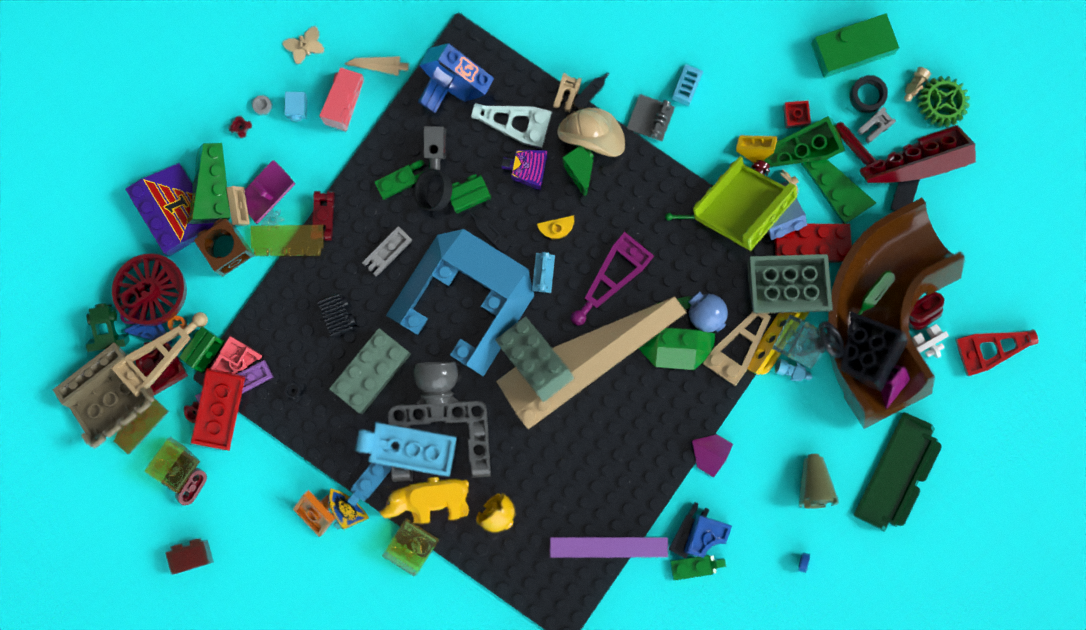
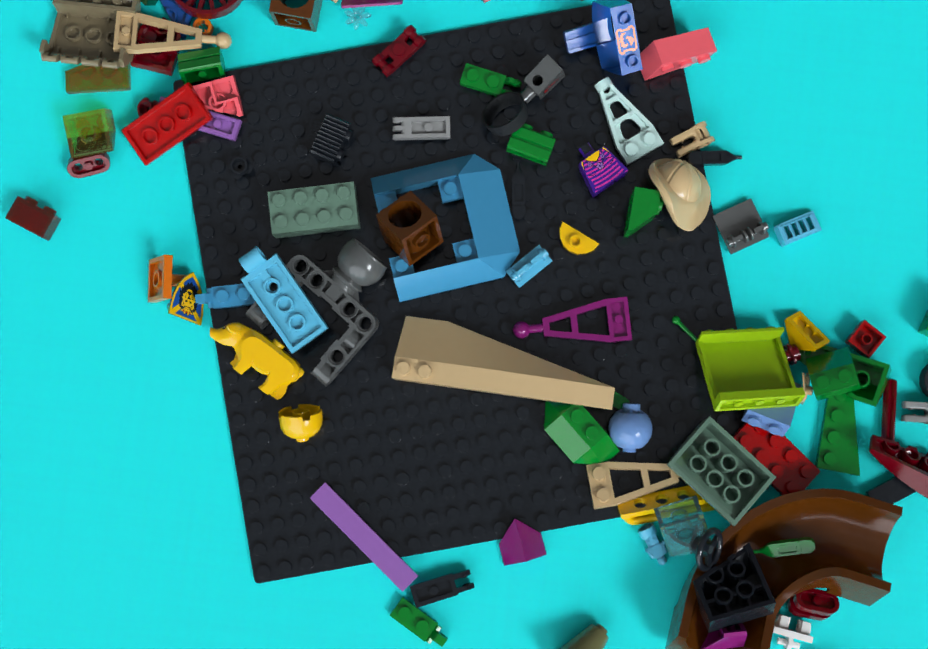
camera: 50 degrees right, 0 degrees up
(285, 239) = (352, 43): clear yellow windscreen -> none
(410, 547) = (208, 380): clear yellow slope -> none
(457, 327) = (410, 228): none -> reddish brown brick
(504, 45) = (677, 52): none -> coral wedge
(534, 359) = (451, 327): sand green brick -> none
(705, 534) = (451, 604): blue tile -> none
(798, 155) = (832, 373): none -> green slope

